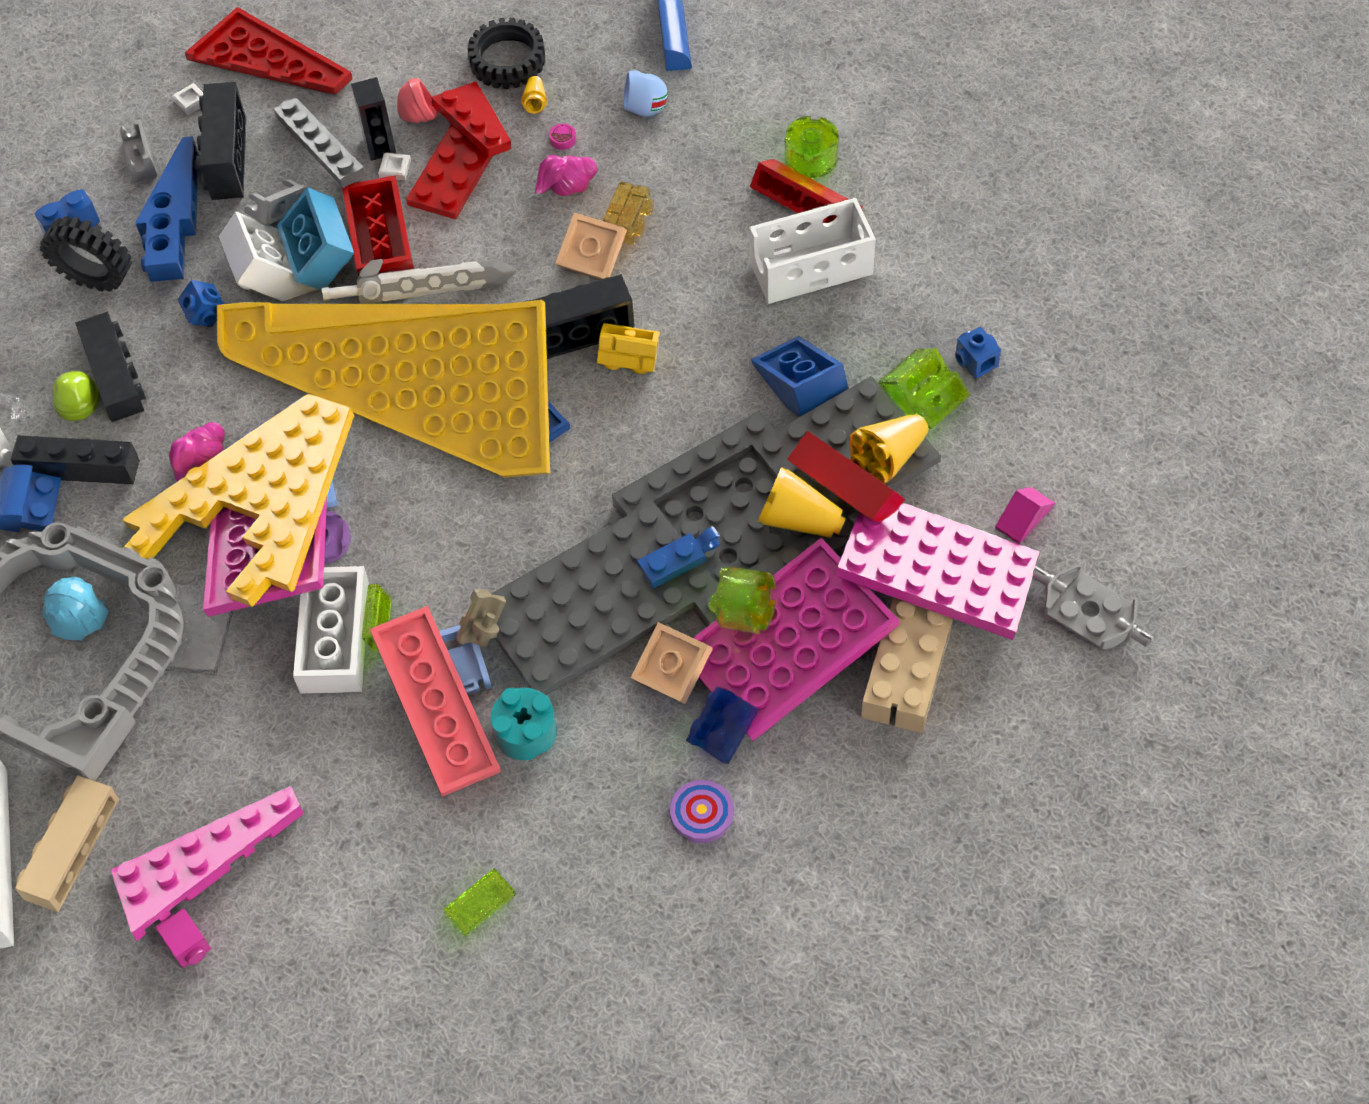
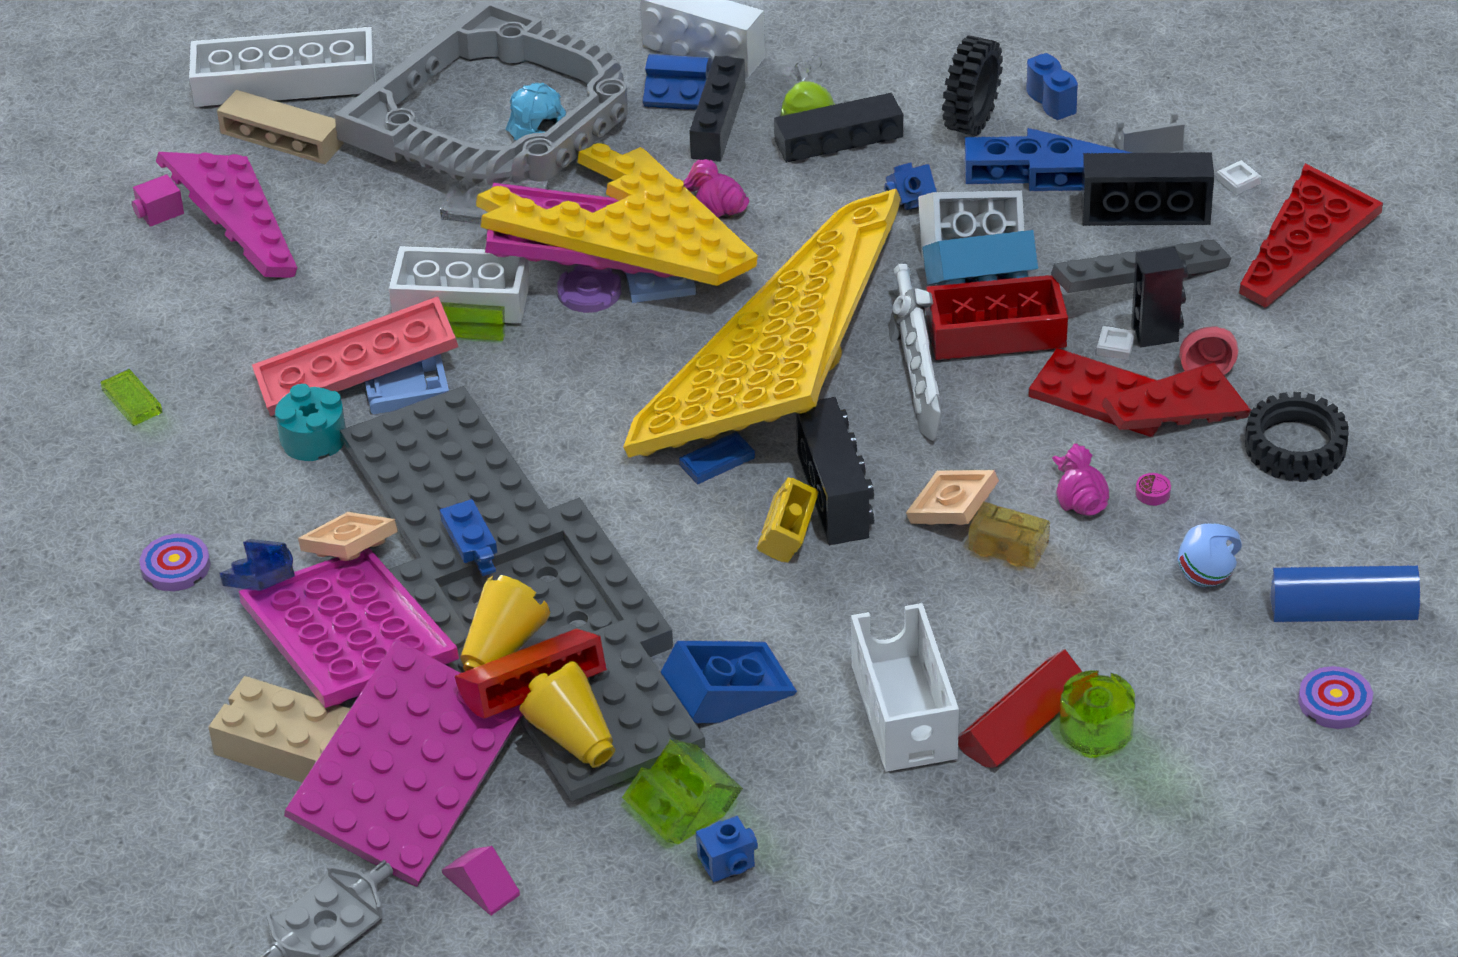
camera: 95 degrees right, 15 degrees down
(276, 205) = (1048, 237): light grey hinge -> none
(481, 618) = (430, 377): dark tan hips -> none
(534, 96) = (1222, 461): yellow cone -> none
(744, 599) = (383, 568): clear neon green brick -> none
(765, 32) = (1335, 697): none -> medium lavender tile

